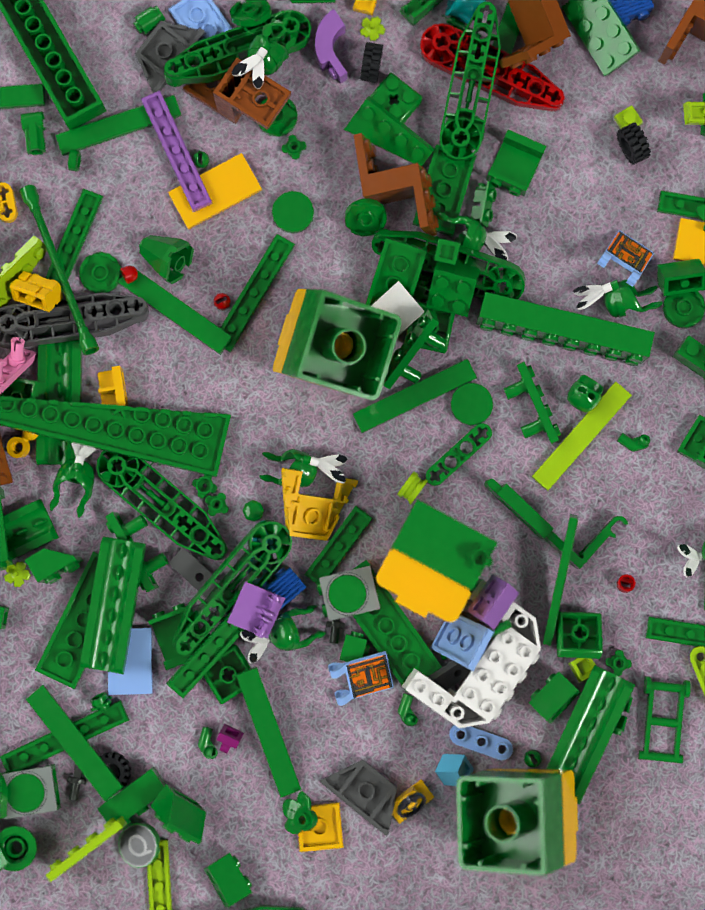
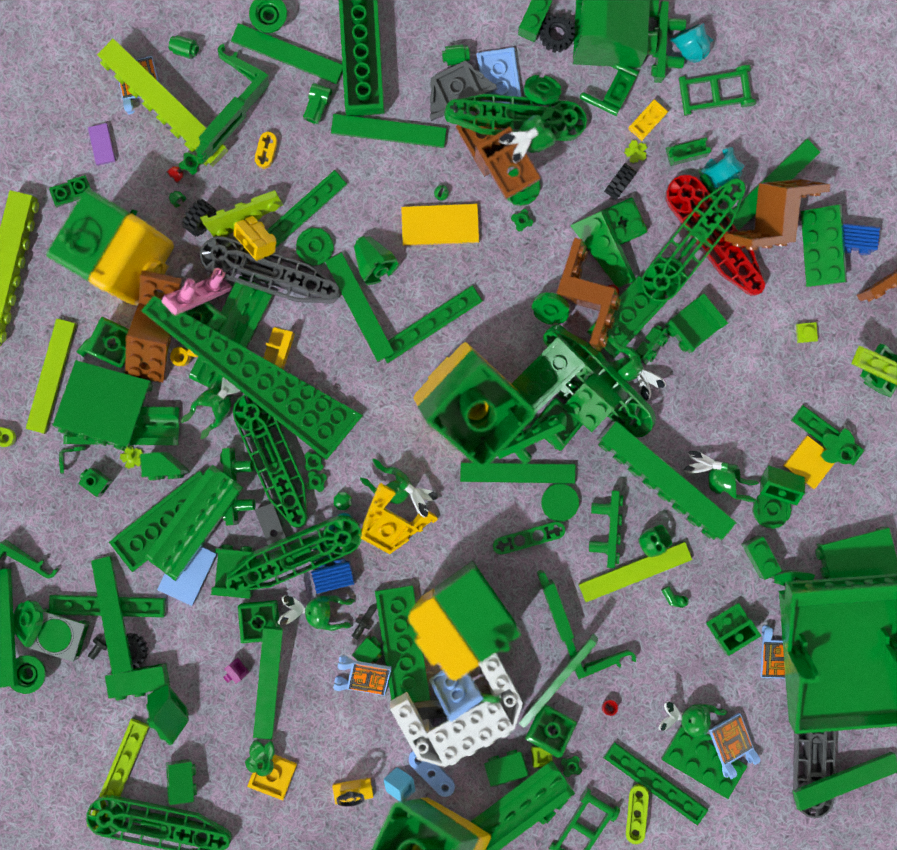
camera: 25 degrees right, 5 degrees up
(74, 160) = (338, 143): green tile -> none
(78, 853) = (78, 704): lime wing -> none
(86, 339) = (275, 301): green hose -> none
(100, 702) = (148, 592): green plate -> none
(129, 273) = (337, 260): red hinge -> none
(139, 844) = (124, 719): tile -> none
(176, 151) = (424, 176): medium lavender tile -> none
(204, 657) = (263, 594): green tile -> none
(205, 745) = (214, 666): green arm -> none
(224, 304) = (401, 323): red hinge -> none
(256, 610) = (304, 585): medium lavender hinge -> none
(293, 212) = (494, 273): green tile -> none
(327, 33) = (595, 139): medium lavender arch -> none
(339, 545) = (396, 563): green tile -> none
(349, 593) = (385, 607): panel -> none
(365, 792) = (321, 767): dark grey wing -> none
(400, 302) = (540, 395): white sticker -> none
(405, 712) = (384, 721): green arm -> none
(412, 487) = (478, 547): lime wheel -> none
(447, 251) = (602, 373): green brick -> none
(493, 601) = (494, 676): medium lavender hinge -> none
(528, 760) = (461, 806): green hinge -> none
(627, 254) = (748, 445): flag -> none
(633, 143) = (800, 356): black tyre -> none

